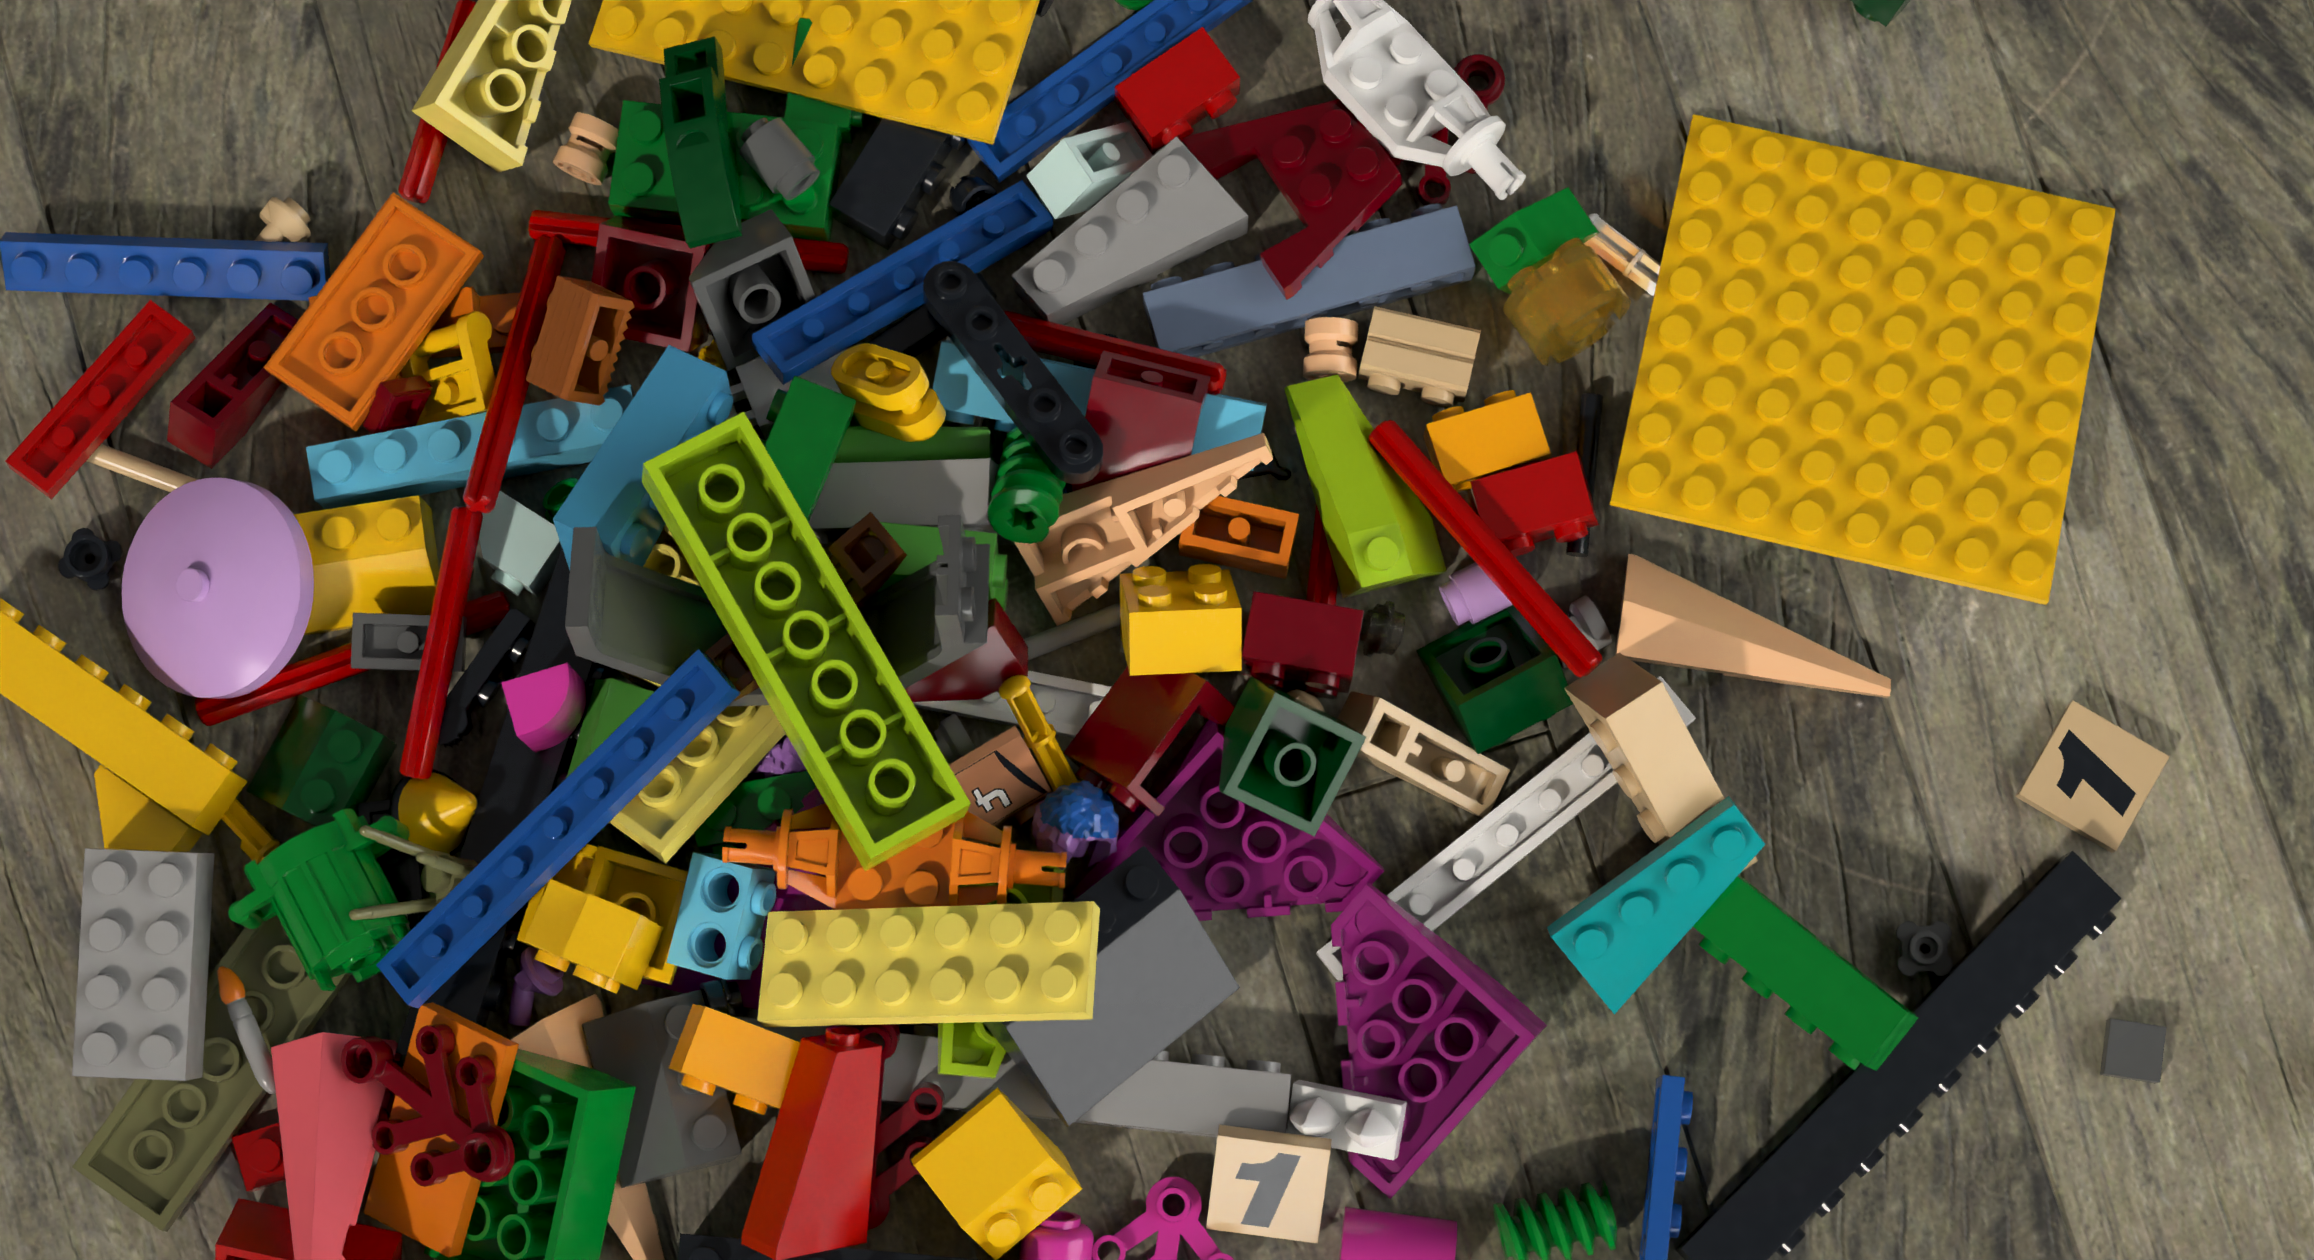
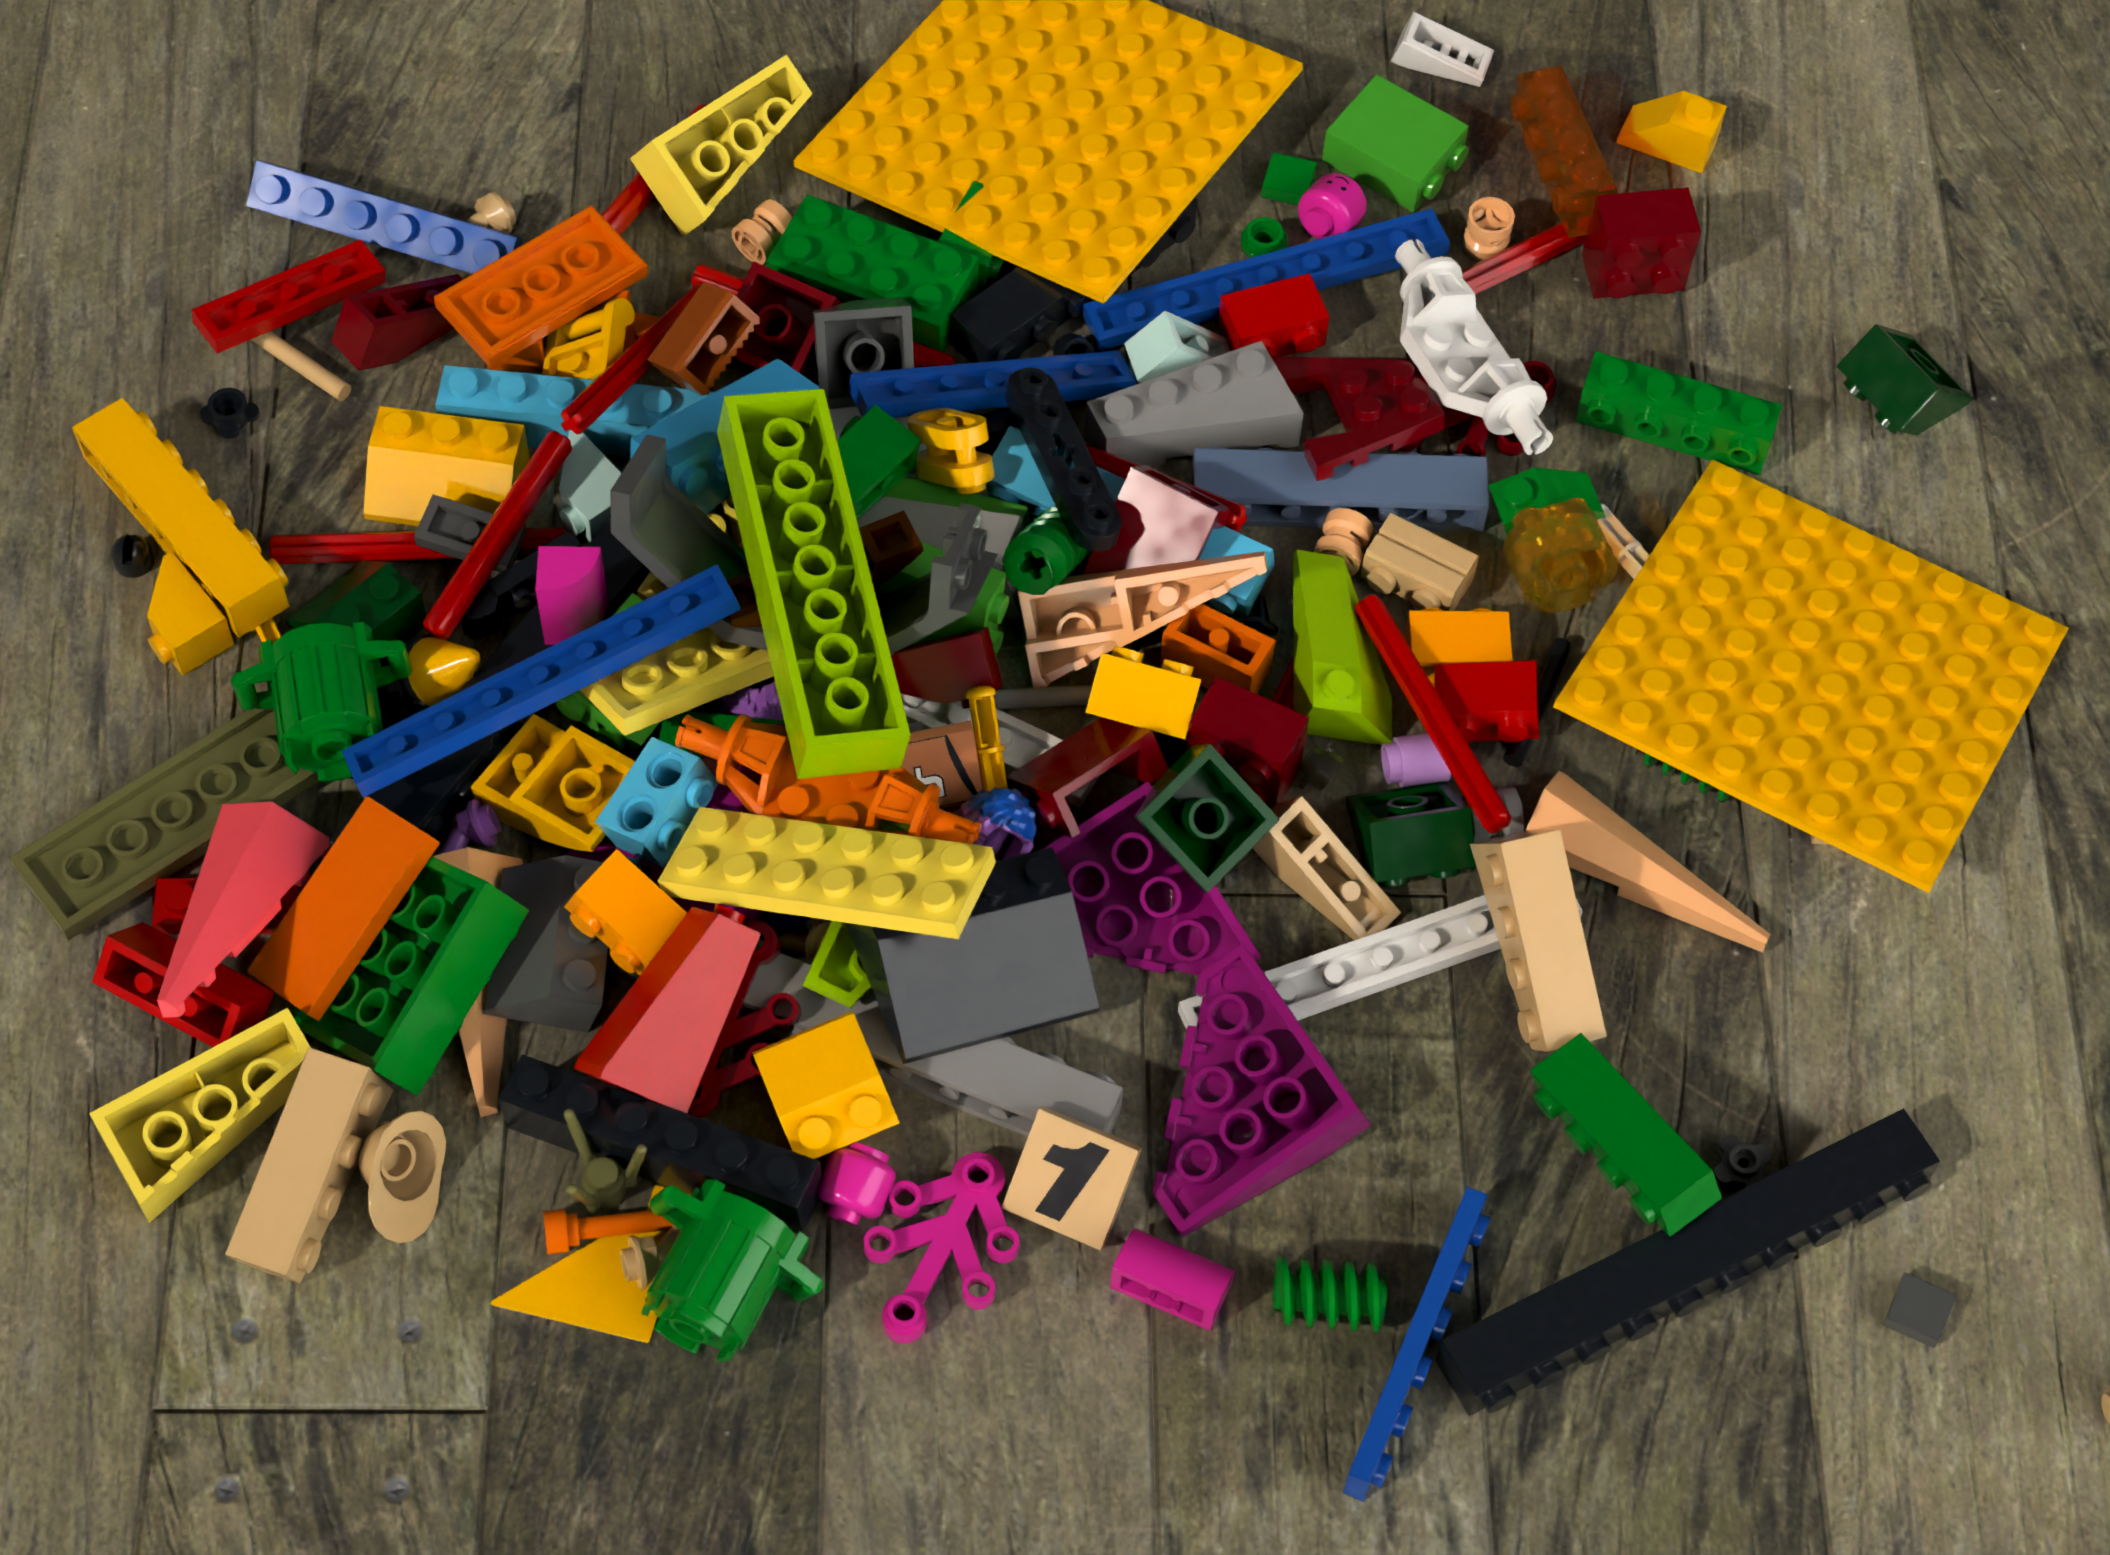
camera: 10 degrees right, 20 degrees down
(65, 763) = (142, 556): none -> black hinge
(143, 964) = (141, 702): light grey brick -> none
(217, 588) = (326, 450): lavender dish -> none
(233, 995) = (207, 785): light grey piece -> none
(373, 1060) = (374, 913): dark red plant -> none
(397, 404) = (533, 356): dark red tile -> none
(438, 876) = (420, 699): olive plant -> none
(596, 935) = (542, 778): yellow brick -> none
(699, 142) = (857, 227): dark green slope -> none
(779, 157) = (921, 255): dark grey brick -> none
(1348, 1117) = (1167, 1148): white tile -> none
(1644, 76) = (1678, 413): none -> green brick
(1648, 908) = (1491, 1044): teal wing -> none
(2092, 776) = (1937, 1068): tan tile -> none

